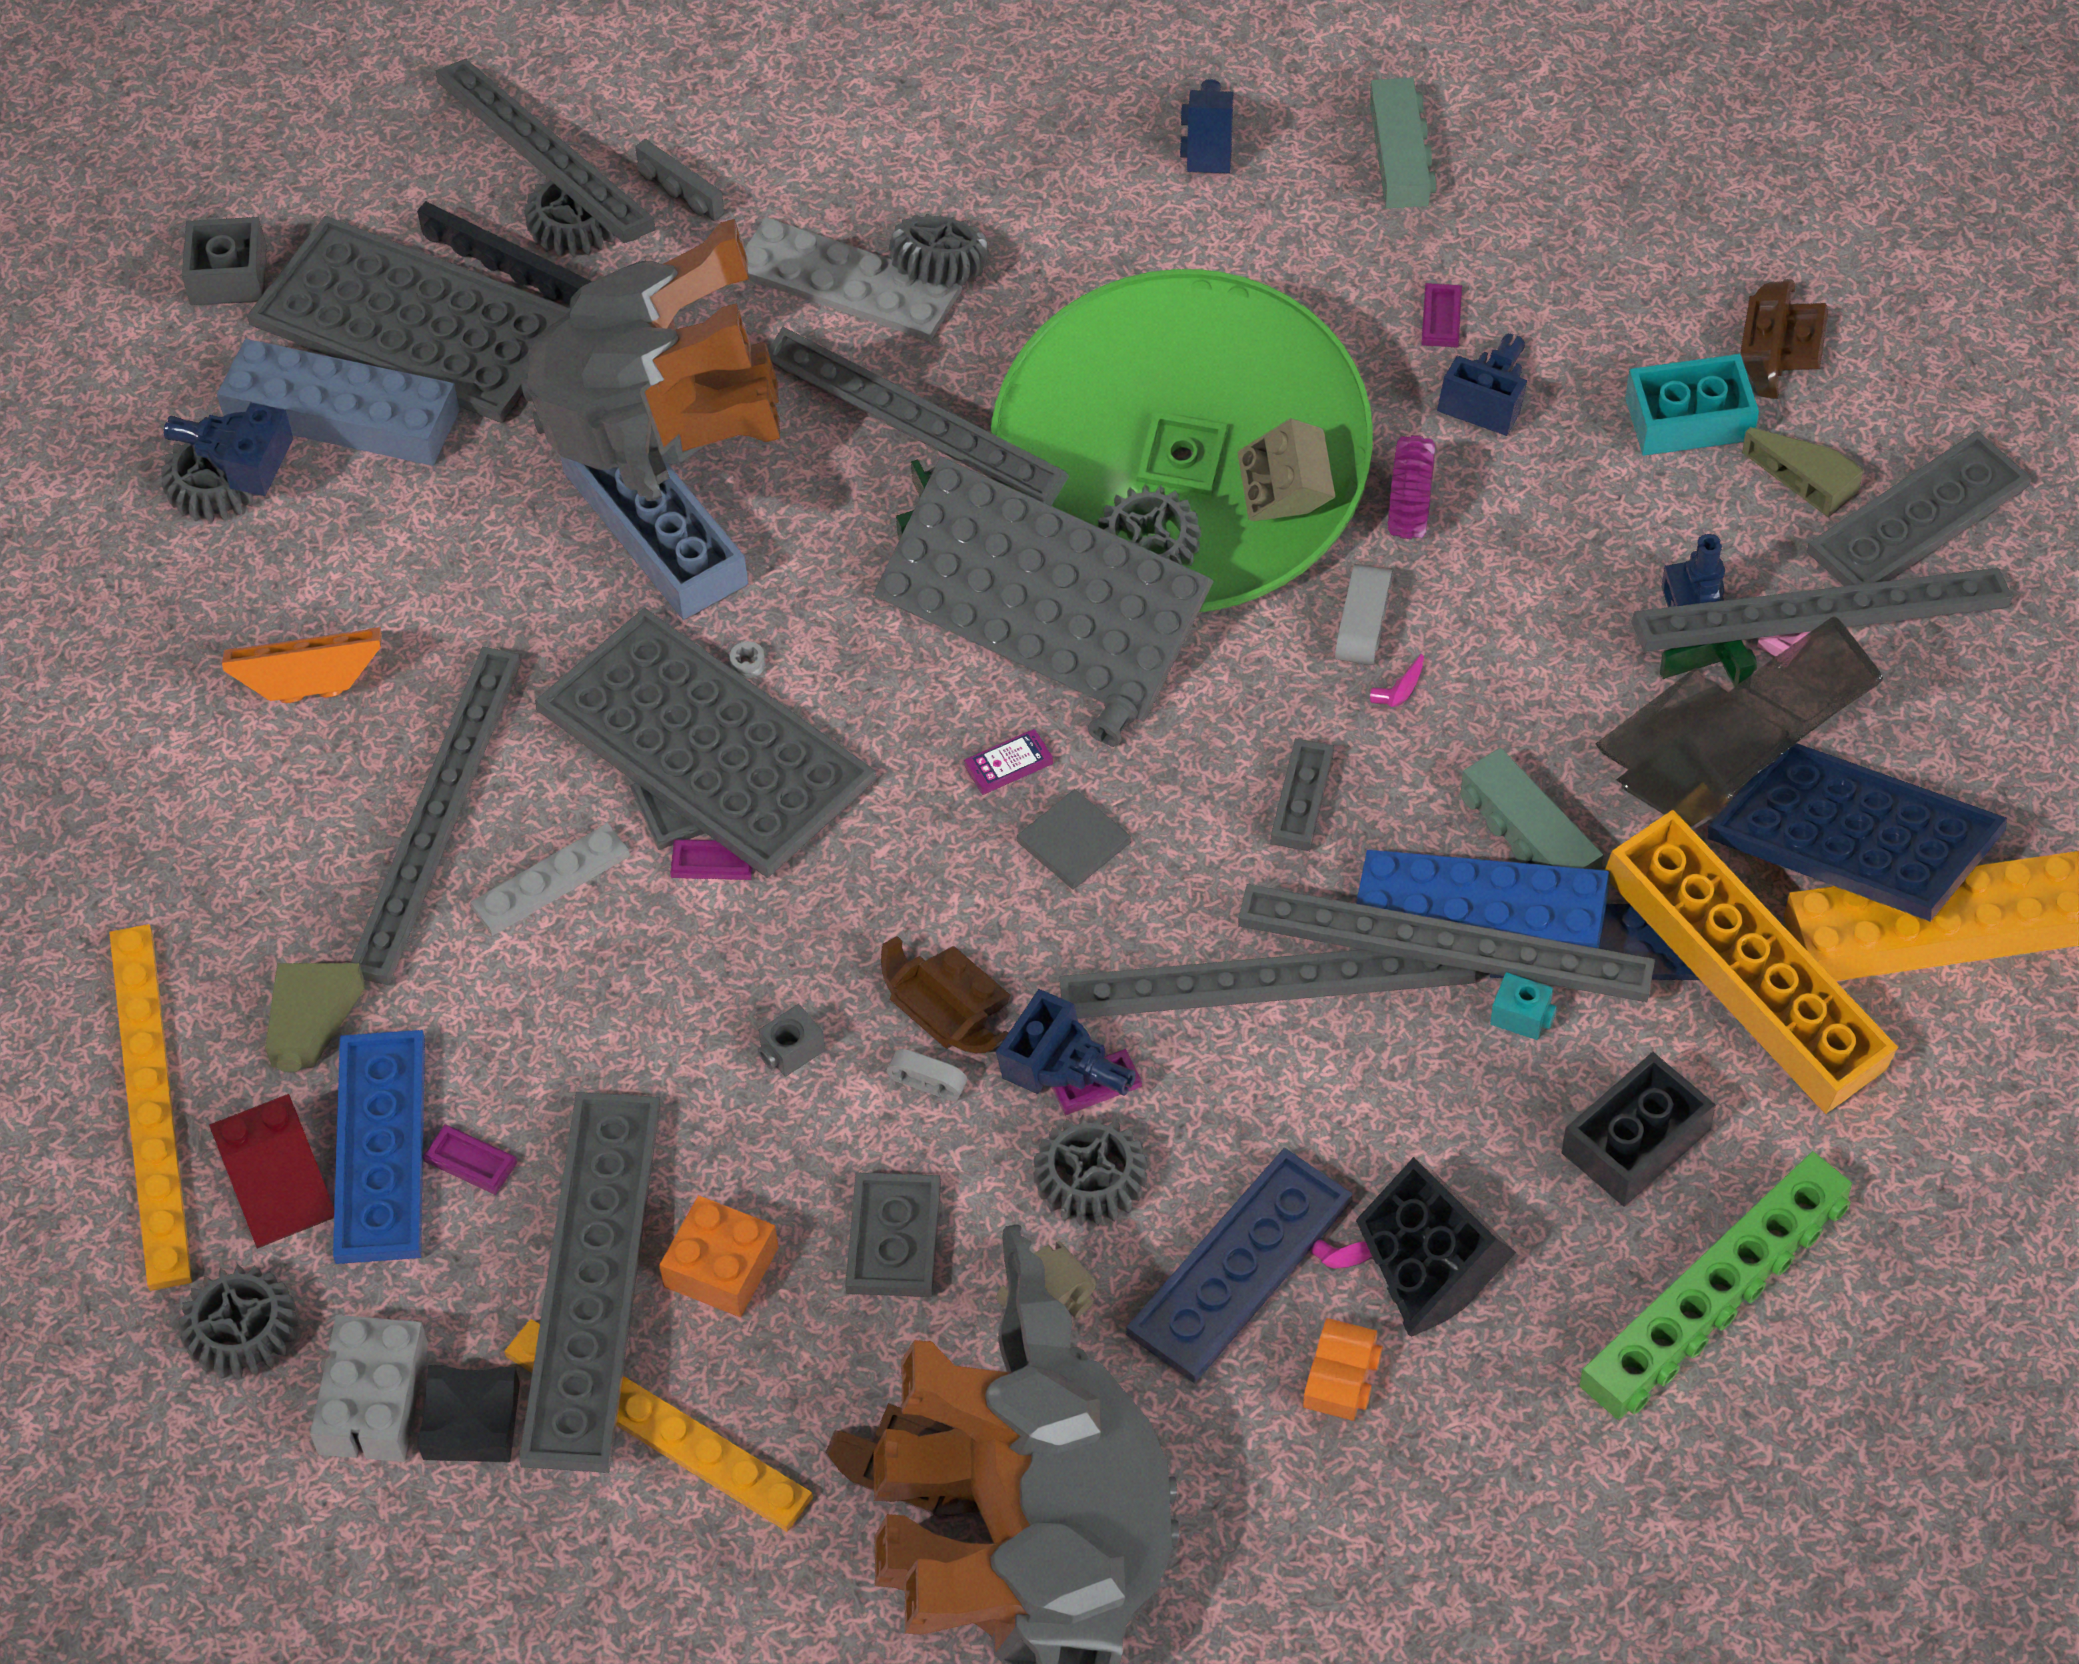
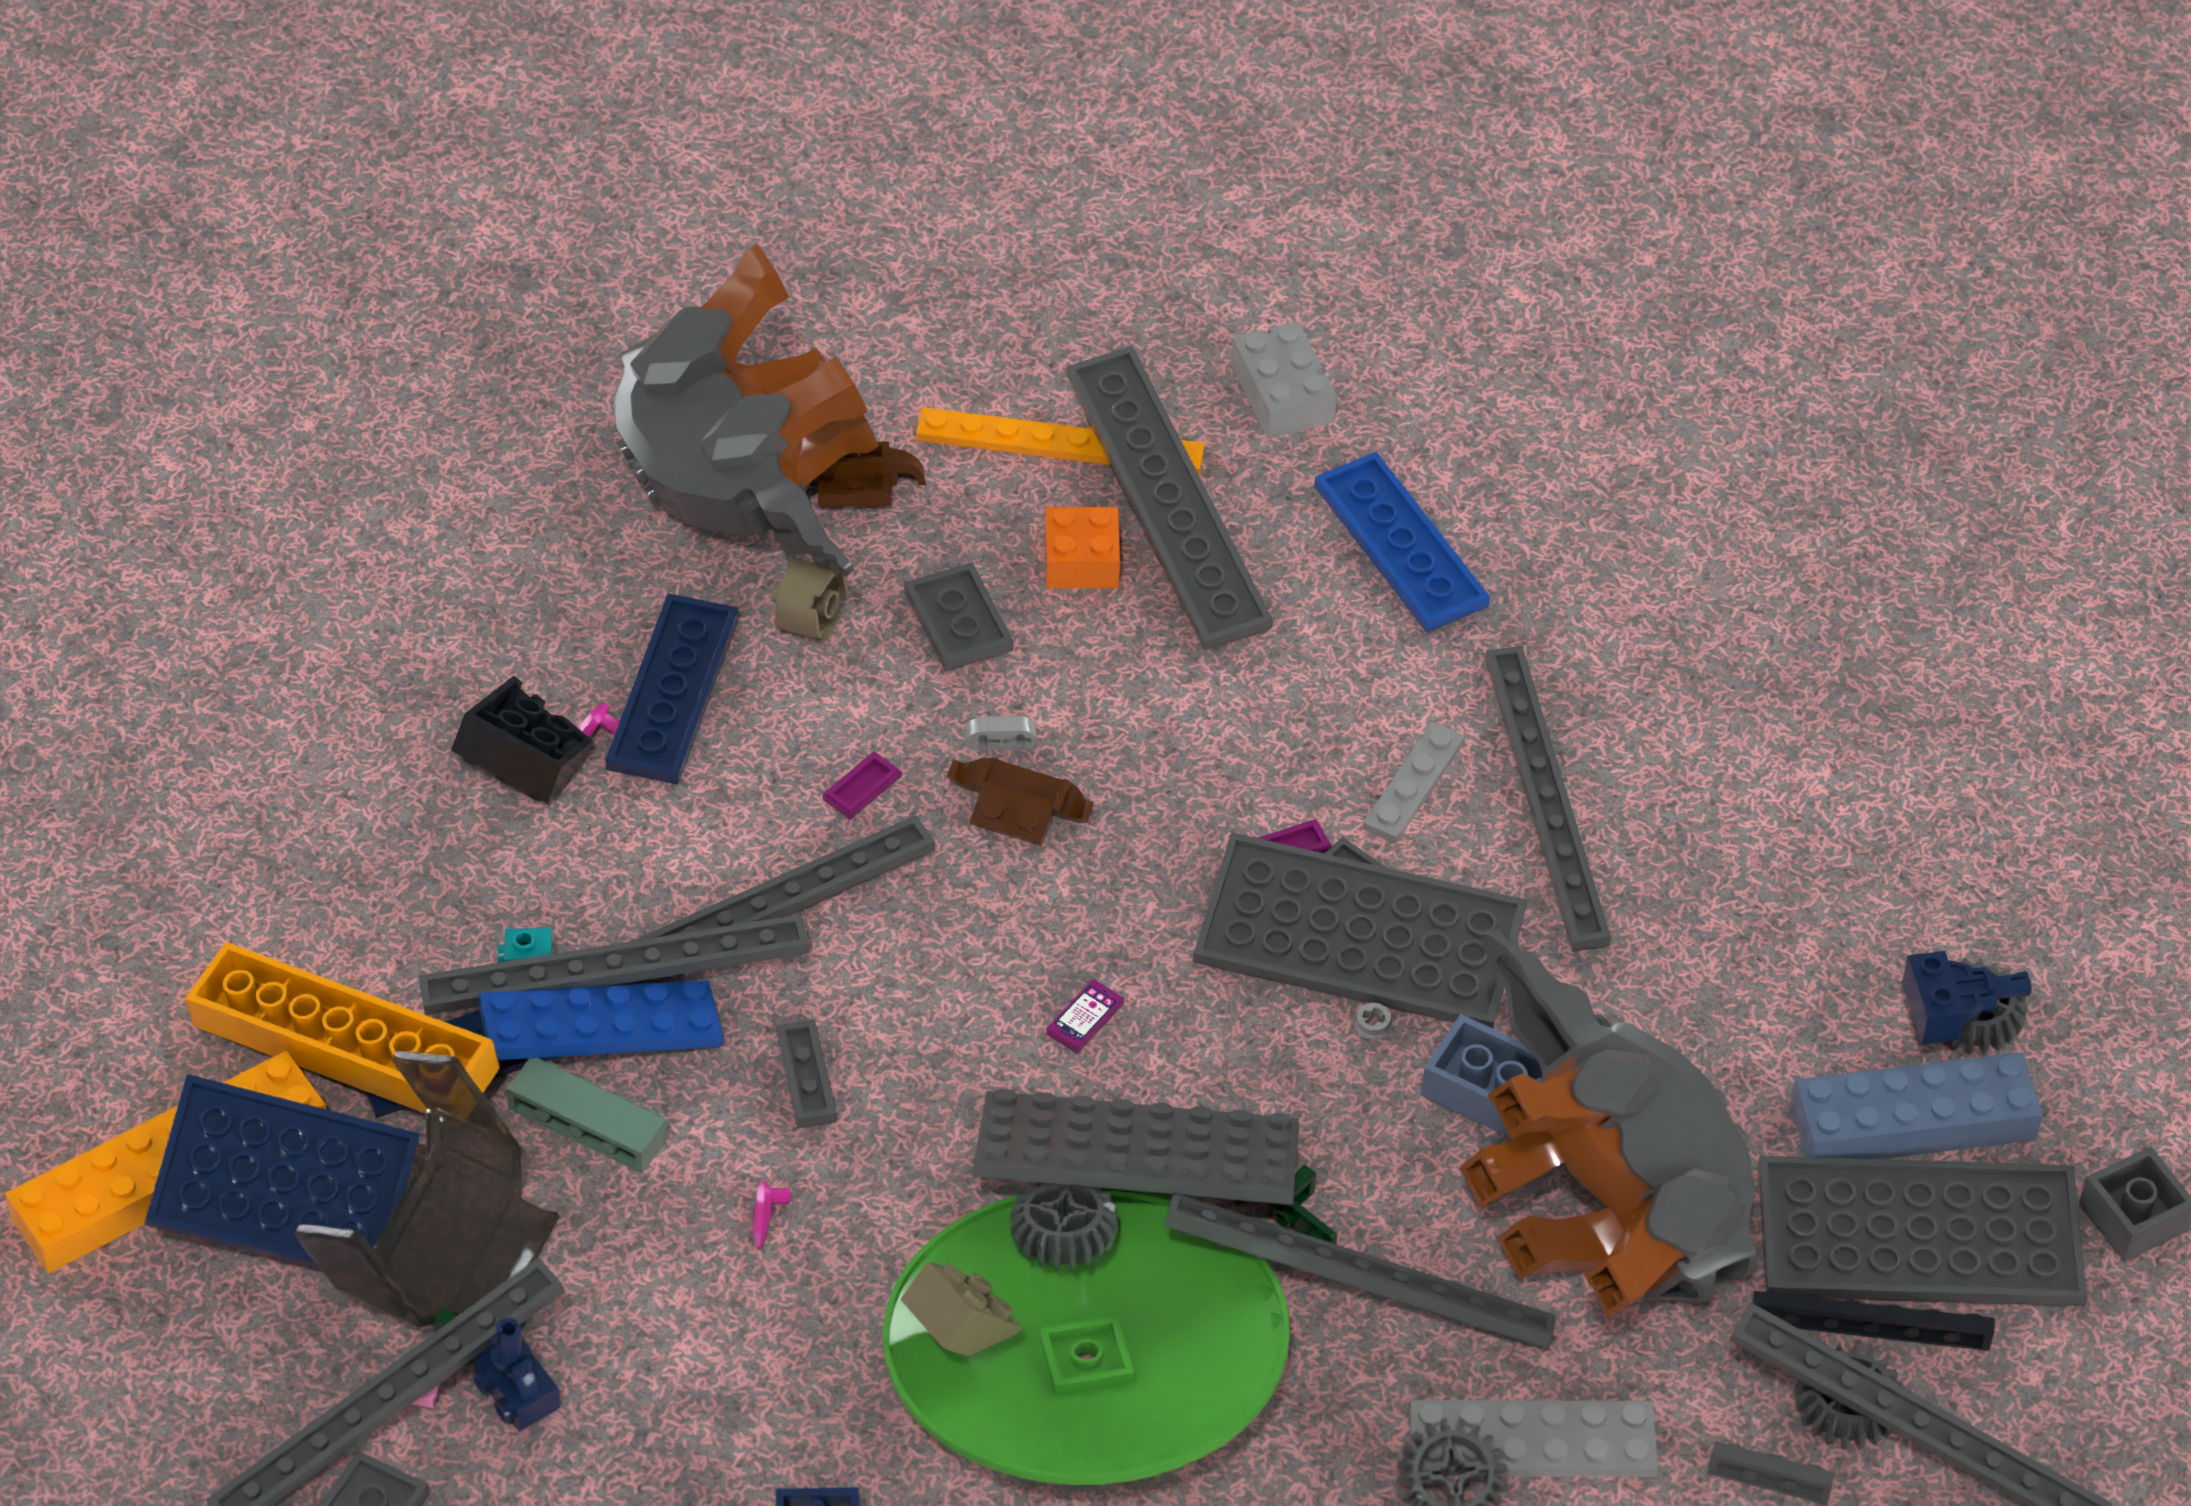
camera: 150 degrees right, 5 degrees down
(150, 1109) = (1606, 516): light orange plate -> none
(202, 1327) = (1415, 398): dark grey gear -> none
(273, 1170) = (1472, 495): dark red slope -> none
(303, 666) = (1758, 865): orange wedge -> none
(308, 1010) = (1532, 606): olive slope -> none
(469, 1414) = (1199, 391): black brick -> none
(470, 1159) = (1326, 561): magenta tile -> none
(790, 1026) = (1126, 718): dark grey brick -> none
(1056, 1050) = (898, 774): dark blue brick -> none
(1073, 839) = (989, 970): dark grey tile -> none
(1080, 1150) = (848, 718): dark grey gear -> none
(1112, 720) = (1011, 1072): dark grey bush -> none
(1341, 1369) = (556, 639): orange brick -> none
(1363, 614) = (832, 1260): light grey beam -> none
(1411, 487) = (840, 1379): magenta gear -> none
(1638, 1128) = (387, 880): black brick -> none
(1809, 1183) = (277, 797): bright green brick -> none

